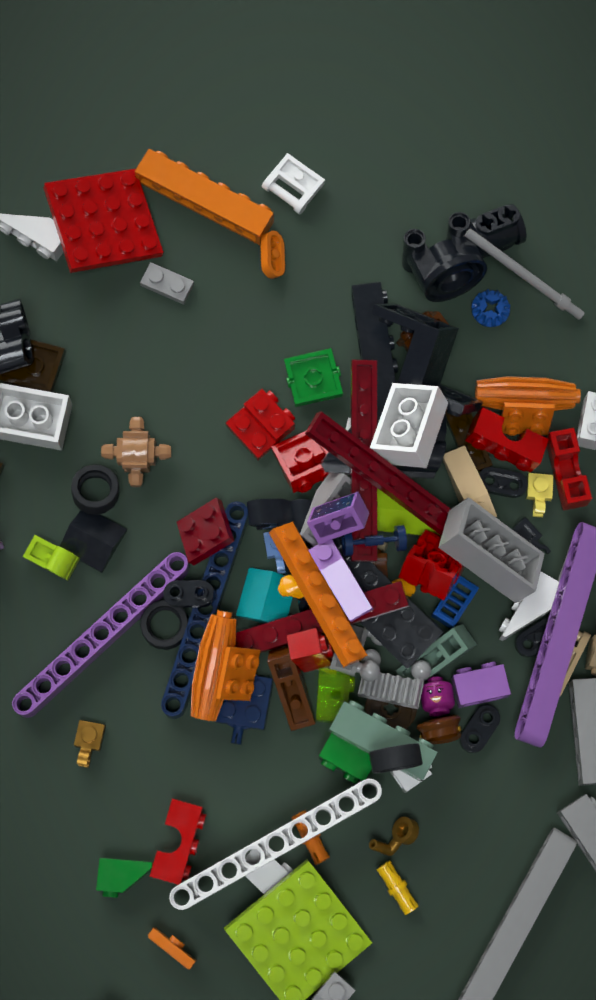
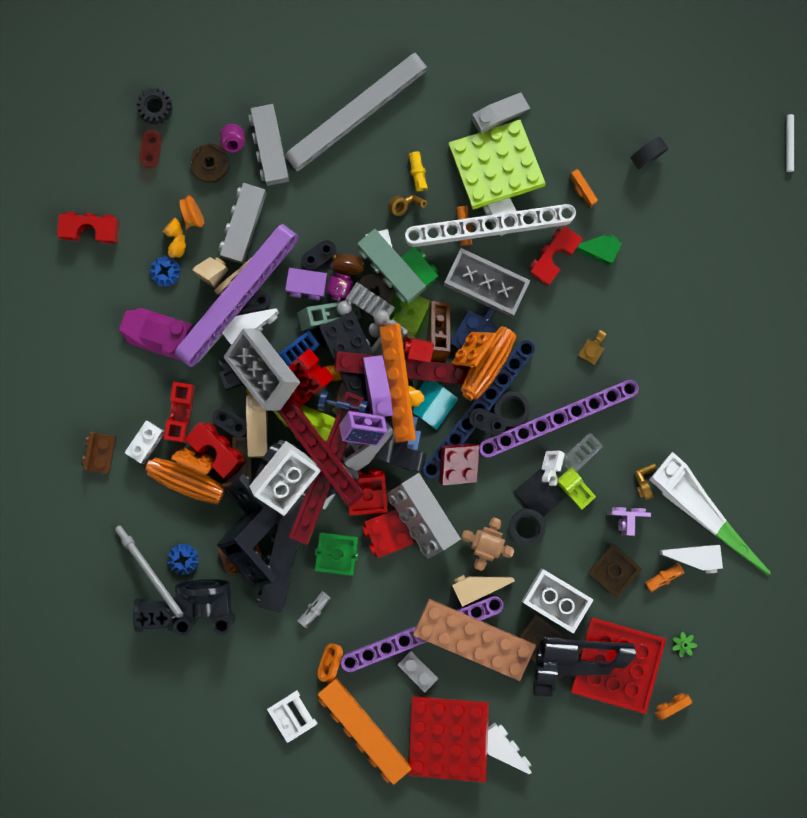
camera: 160 degrees left, 10 degrees up
(71, 599) = (570, 457): none -> clear slope
(90, 575) = (552, 464): none -> white plate
(112, 335) = (474, 639): none -> nougat plate
(129, 400) = (475, 587): none -> tan slope
(174, 335) = (414, 641): none -> medium lavender beam
(226, 452) = (423, 516): none -> light grey brick
(253, 770) = (486, 283): none -> light grey brick
(314, 307) = (314, 609): none -> light grey pin
(395, 758) = (389, 245): black tyre -> none
(539, 490) = (205, 407): light yellow plate -> none

